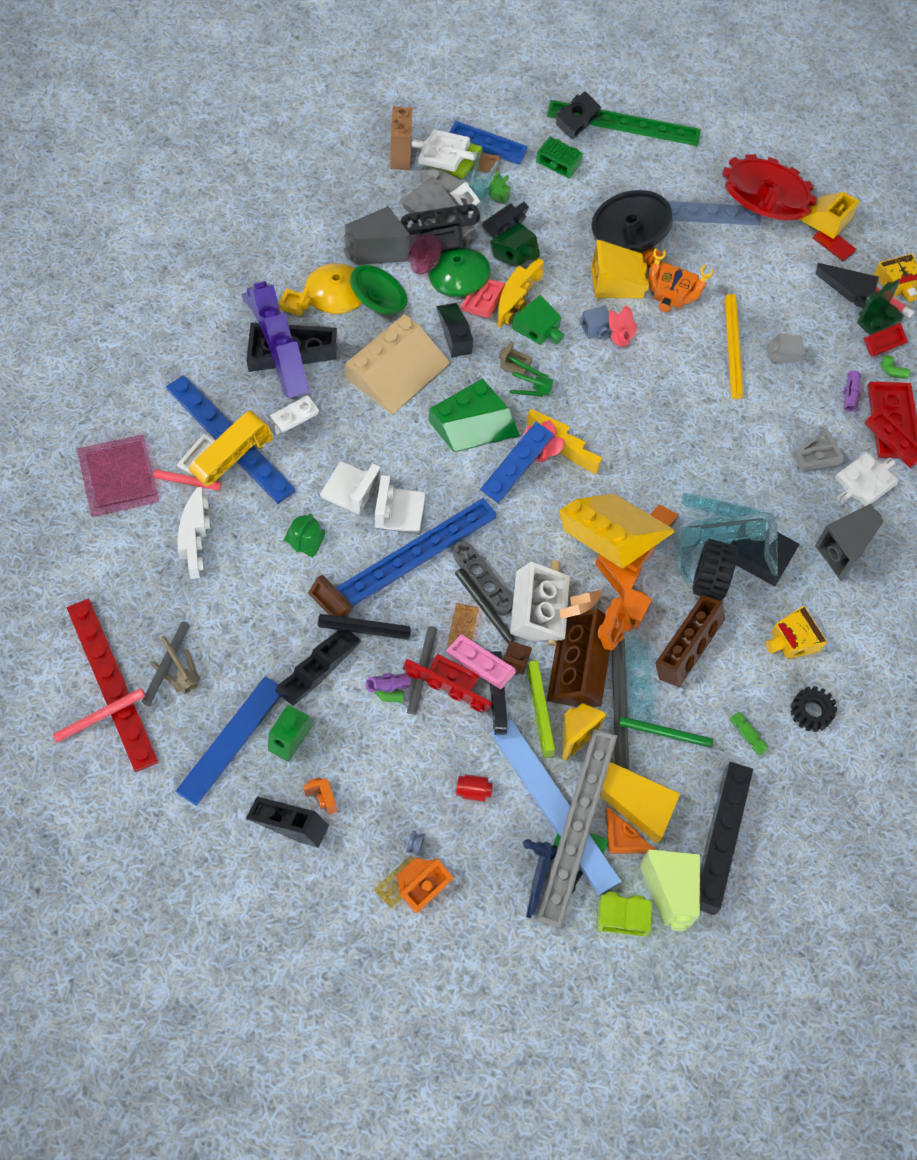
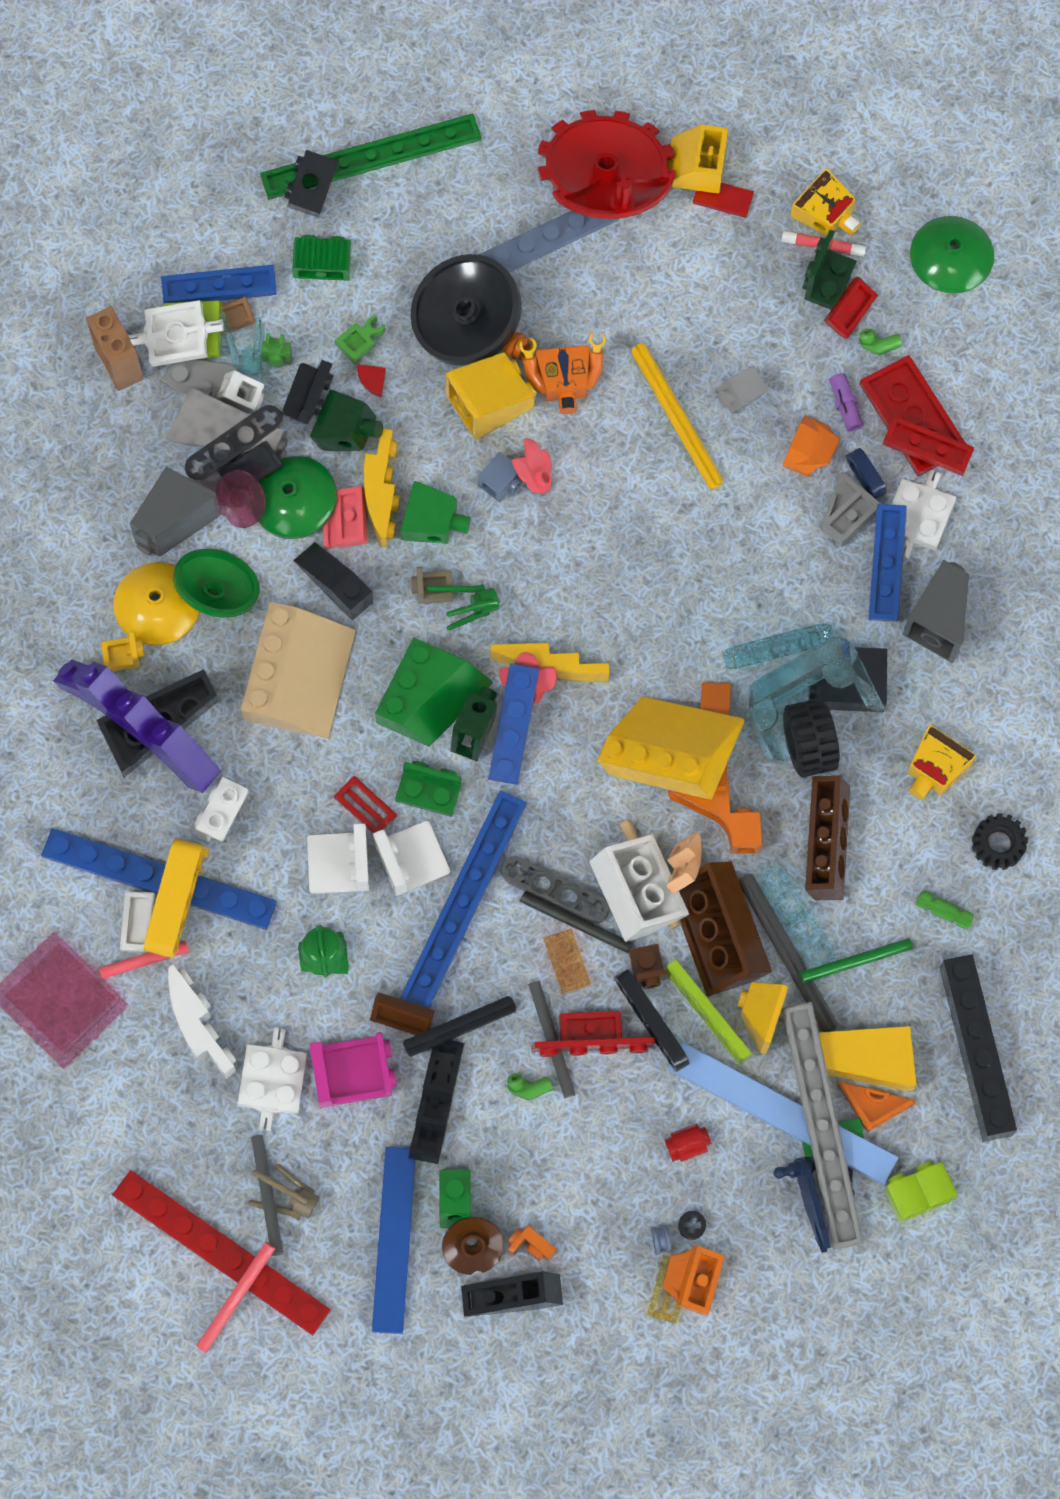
camera: 25 degrees left, 10 degrees up
(218, 594) = (272, 1079): none -> white plate
(273, 780) = (476, 1257): none -> reddish brown dish
(274, 616) = (352, 1070): none -> dark pink panel
(387, 682) = (527, 1079): medium lavender pin -> none
(394, 480) = (346, 789): none -> red tile
(438, 474) = (429, 788): none -> green bracket
(442, 838) = (698, 1232): none -> black bush
(481, 661) = (614, 996): bright pink tile -> none
(493, 447) = (475, 721): none -> dark green torso
(550, 234) = (372, 378): none -> red tile
(555, 210) = (358, 341): none -> bright green plate
(614, 625) = (734, 860): orange wing -> none
(674, 886) = (957, 1133): yellowish green slope -> none
(812, 404) = (811, 447): none -> orange slope
(828, 494) = (887, 562): none -> blue plate
(843, 436) = (866, 473): none -> dark blue beam
(849, 283) = (778, 252): black slope -> none

